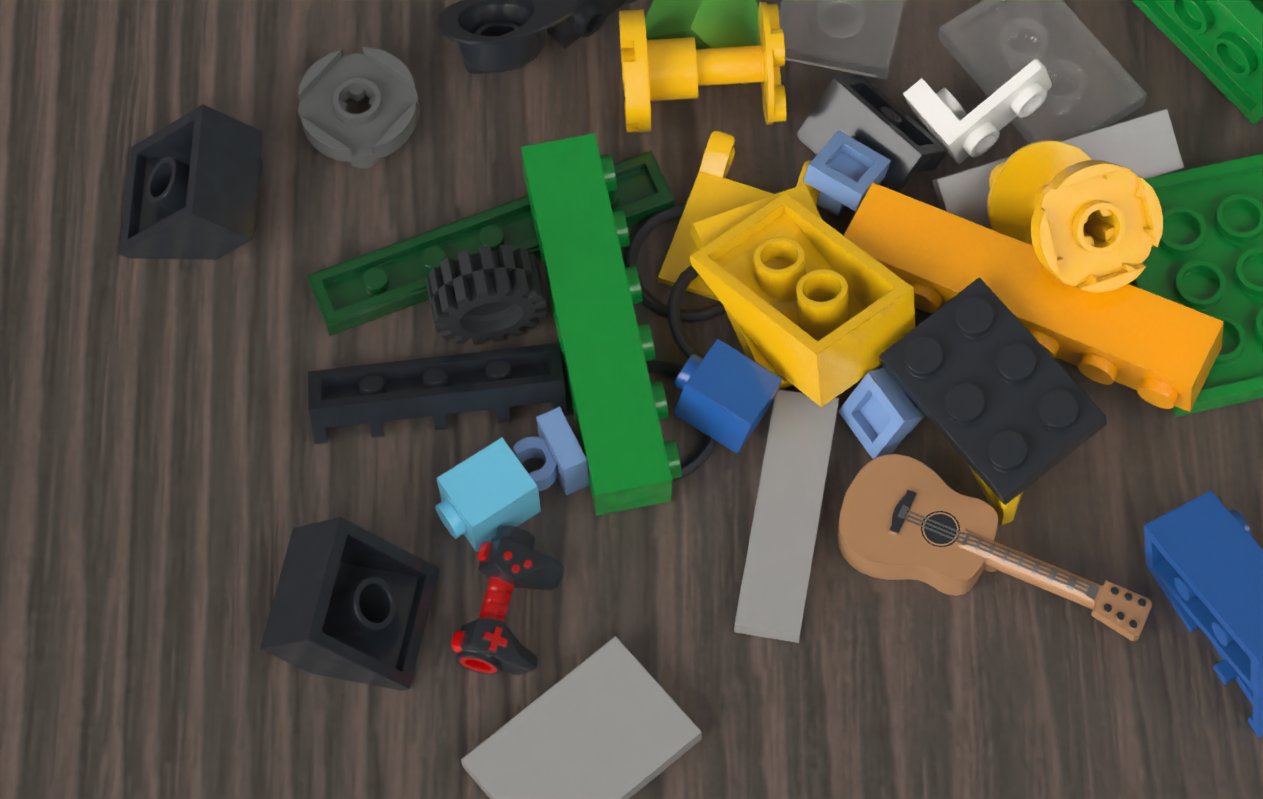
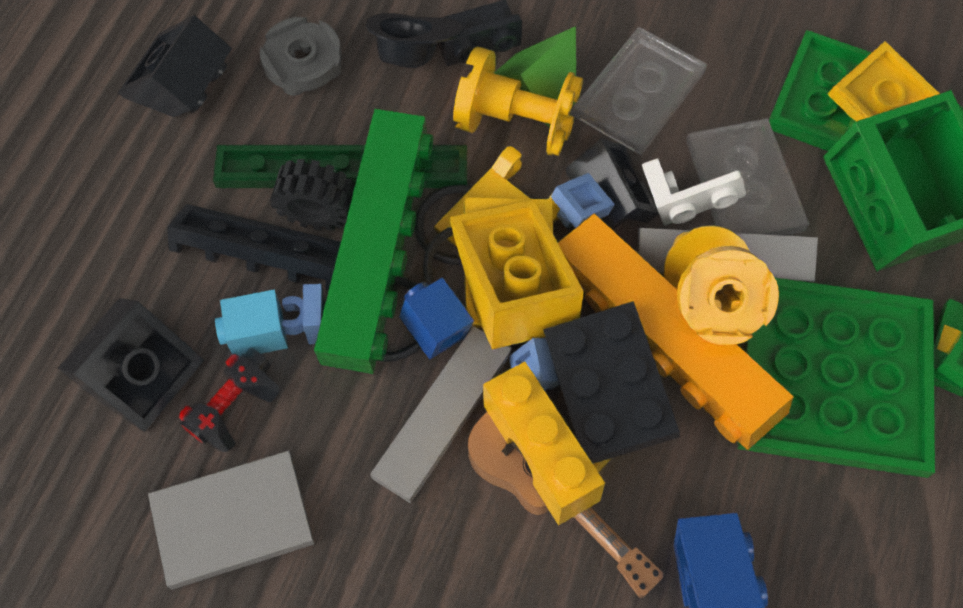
camera: 20 degrees right, 0 degrees up
(982, 518) = (555, 457): none -> yellow arch

